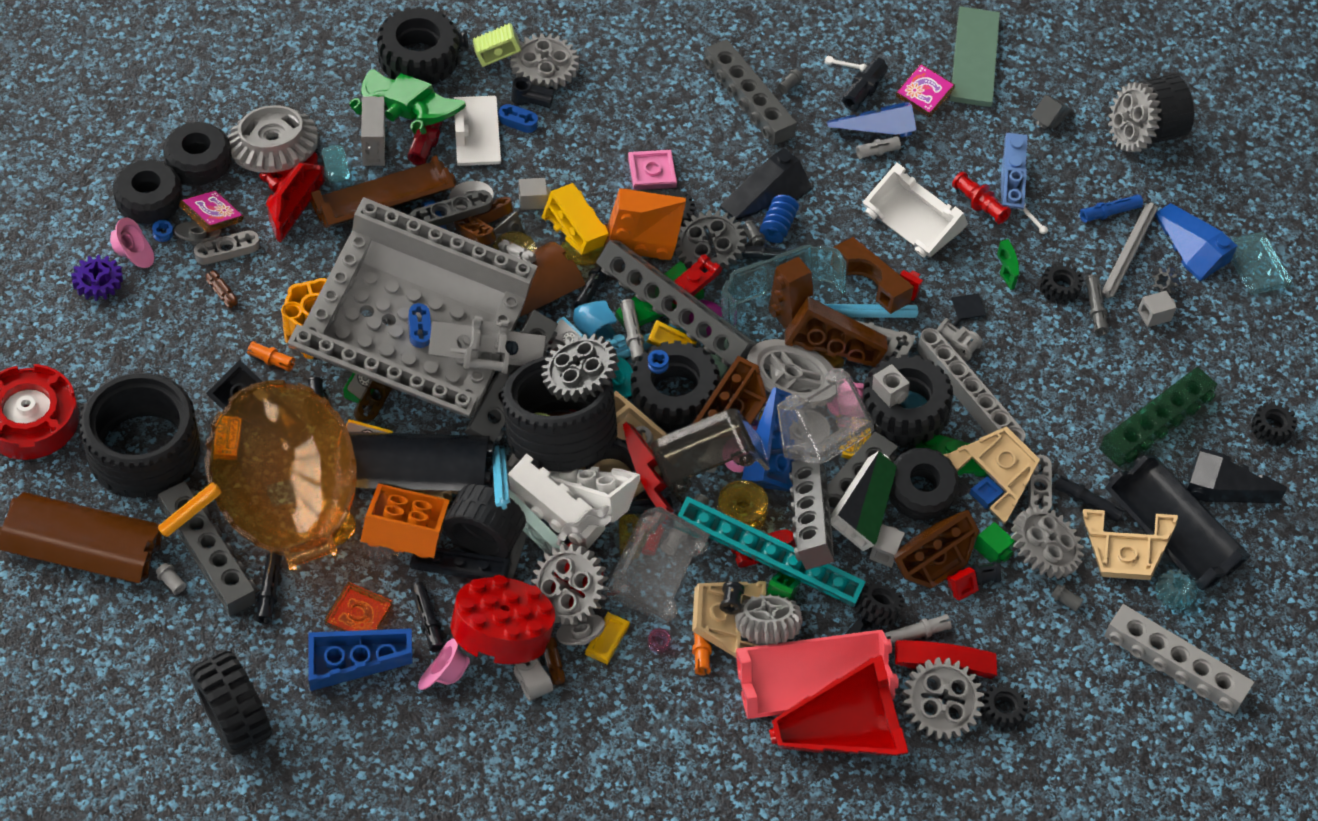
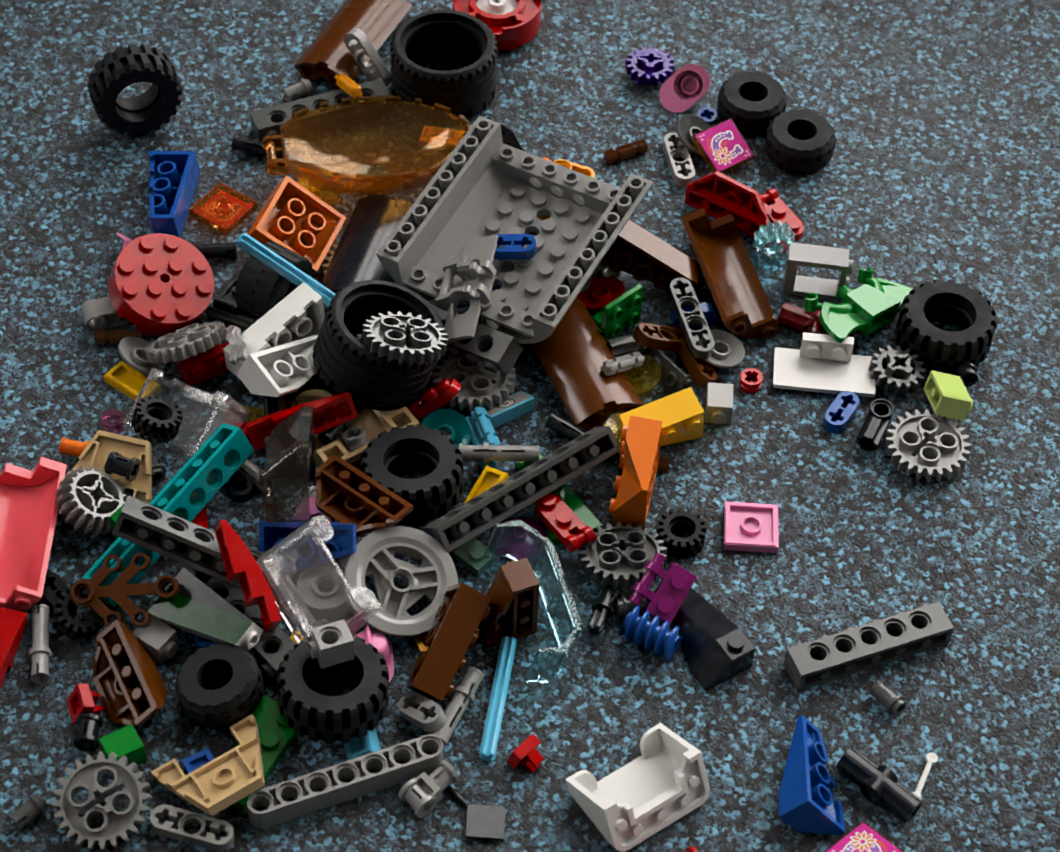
camera: 105 degrees right, 5 degrees down
(132, 507) = (363, 43): none -> light grey beam
(269, 156) = (834, 217): light grey gear -> none
(468, 81) = (897, 369): none -> dark grey gear
(497, 183) = (750, 387): none -> red bush
(595, 319) = (524, 425): dark azure piece -> none
(655, 367) = (429, 448): blue bush -> none
(668, 597) = (151, 408): none -> black tyre
(744, 207) = (669, 593): none -> magenta plate
(749, 496) = (243, 511): clear yellow wheel -> none
(836, 462) = (243, 567): none -> red slope
(876, 585) = (121, 589): none -> reddish brown plant
(878, 147) = (763, 776): light grey pin -> none
(892, 290) = (511, 720): reddish brown arch -> none

